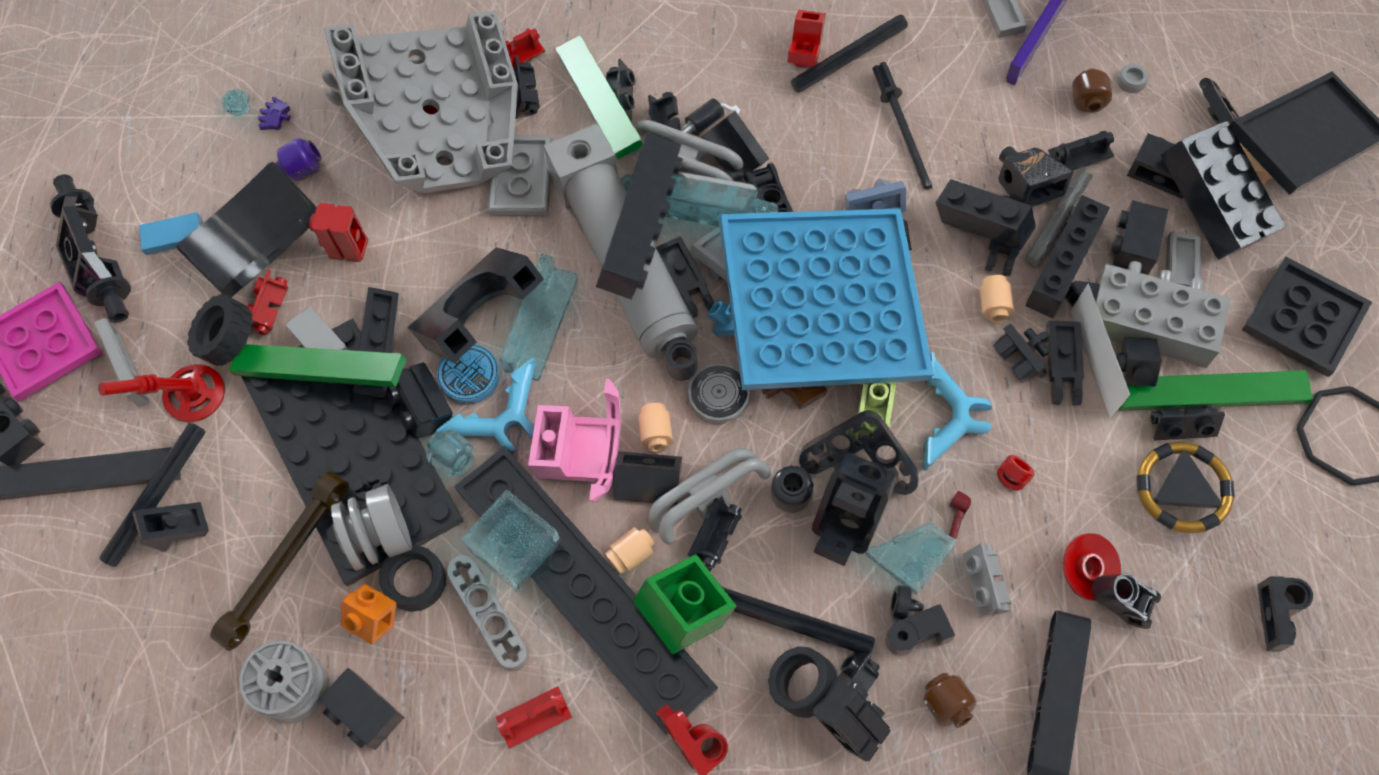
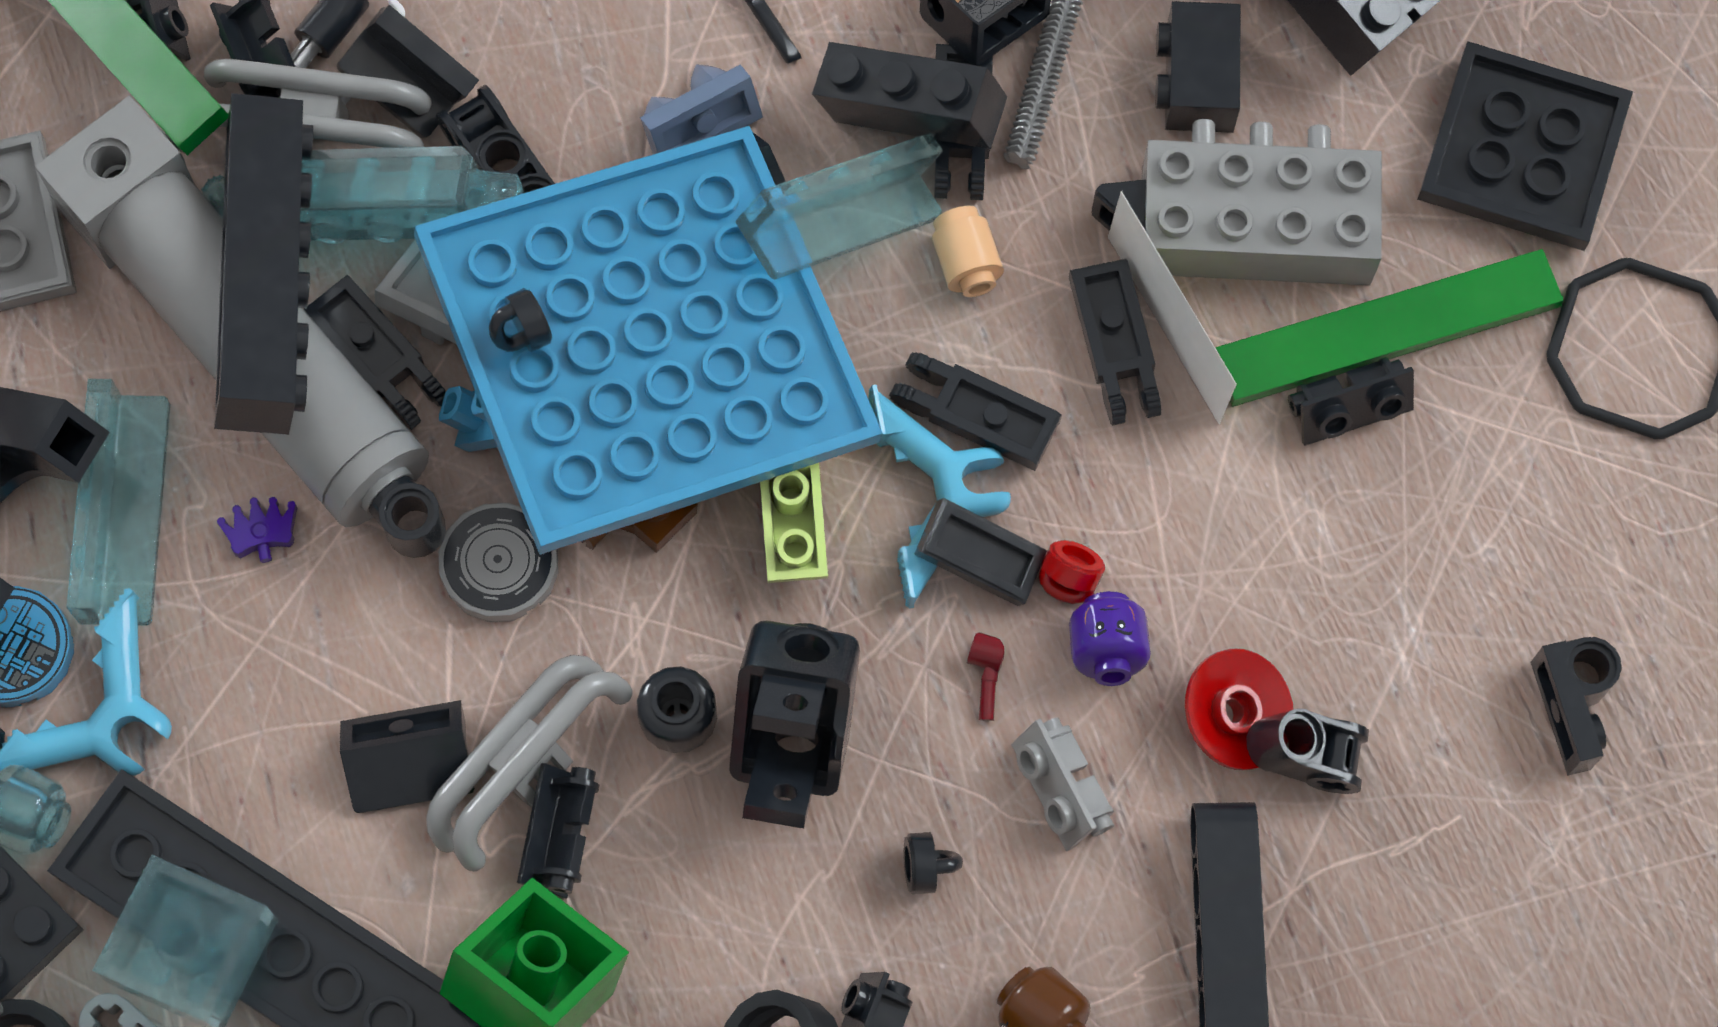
camera: 20 degrees left, 5 degrees up
(577, 446) = (260, 732): bright pink piece -> none
(605, 349) = (259, 531): none -> dark purple piece
(630, 550) = (410, 900): light nougat brick -> none
(655, 427) = (396, 658): light nougat brick -> none
(766, 272) = (528, 320): none -> black tile
(801, 623) = (751, 948): black axle -> none
(869, 442) = (792, 586): black beam -> none
(913, 555) = (924, 772): clear light blue wing -> none
(918, 629) = (963, 901): black leg -> none
(938, 258) = (842, 207): none -> clear light blue panel
(970, 450) = (981, 552): none -> black tile
(984, 378) = (979, 410): none -> black hinge
(1013, 342) = (1013, 328): black hips -> none
(1029, 511) = (1108, 637): none -> dark purple head
(1067, 256) = (1078, 138): black brick -> none
(1140, 361) = (1245, 309): black brick -> none
(1184, 257) = (1289, 88): light grey tile -> none
(1186, 487) = (1371, 521): piece -> none

